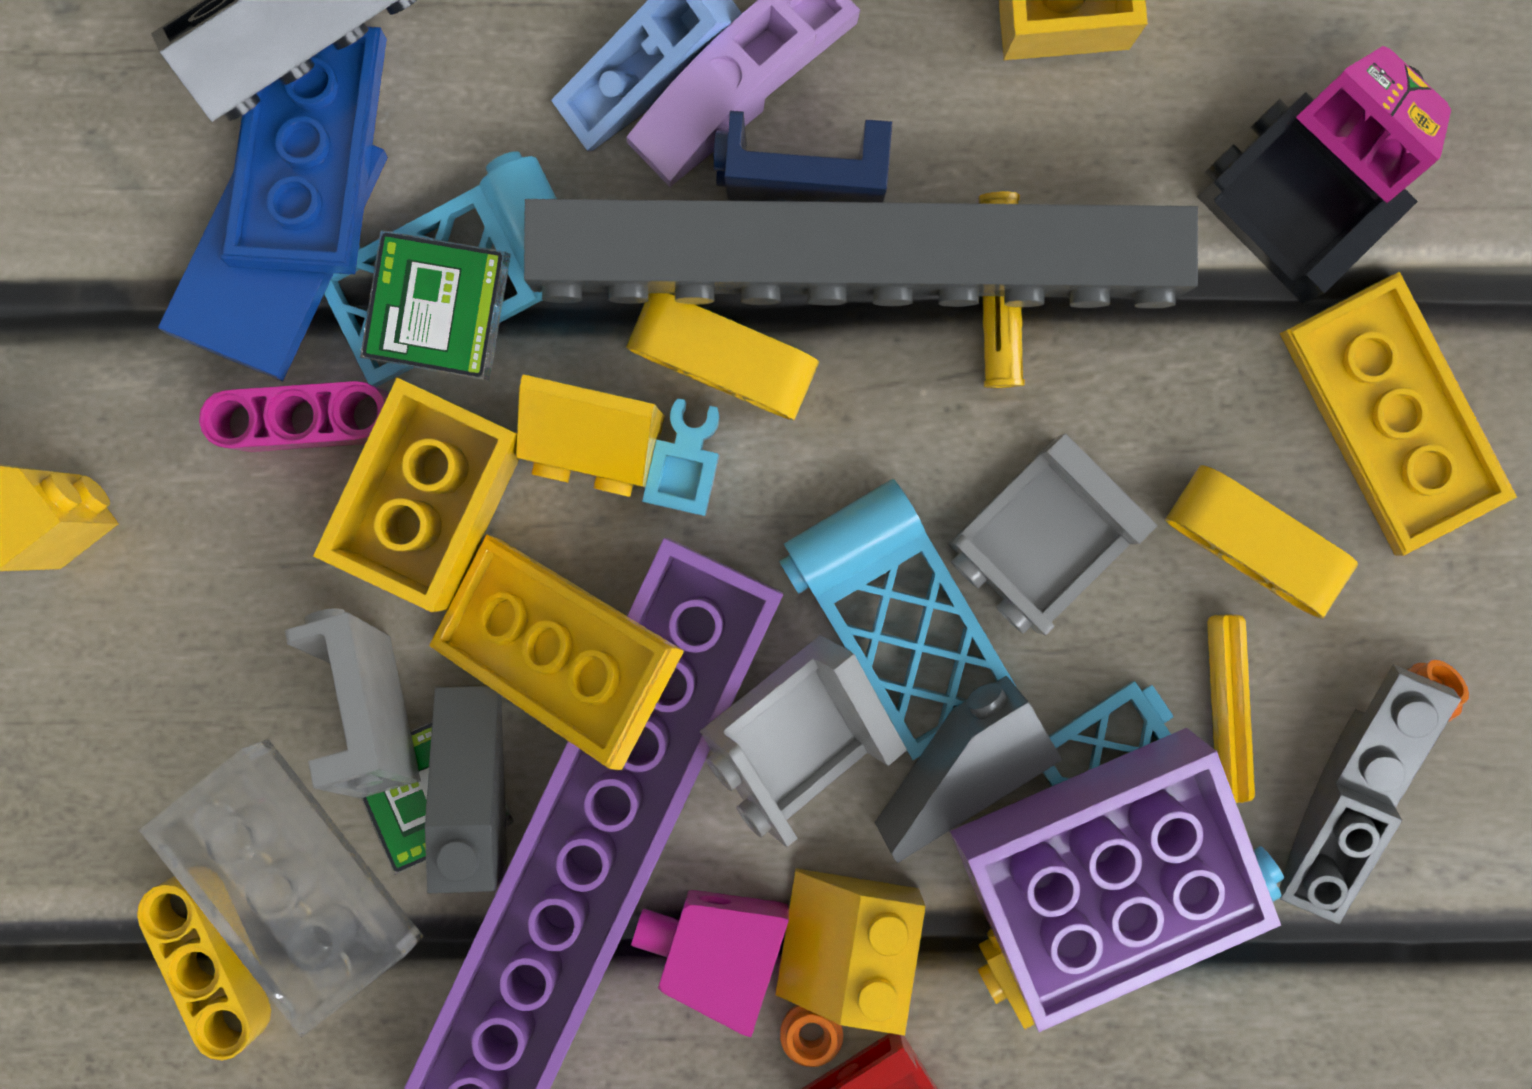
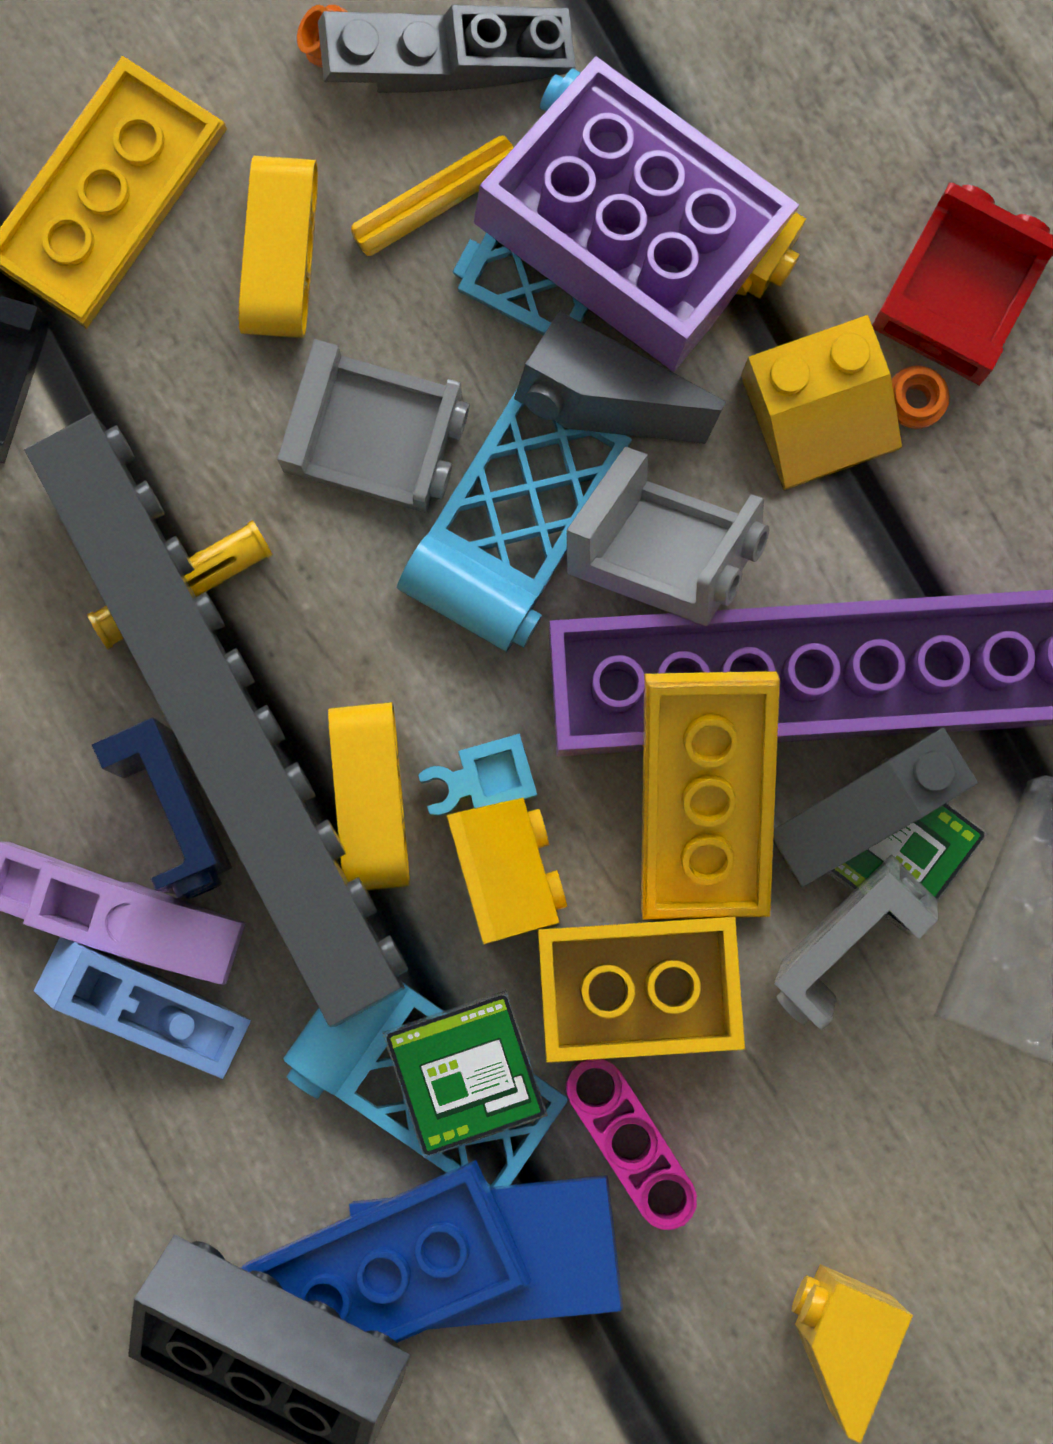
camera: 120 degrees left, 5 degrees down
(717, 953) = (892, 513): dark pink torso -> none

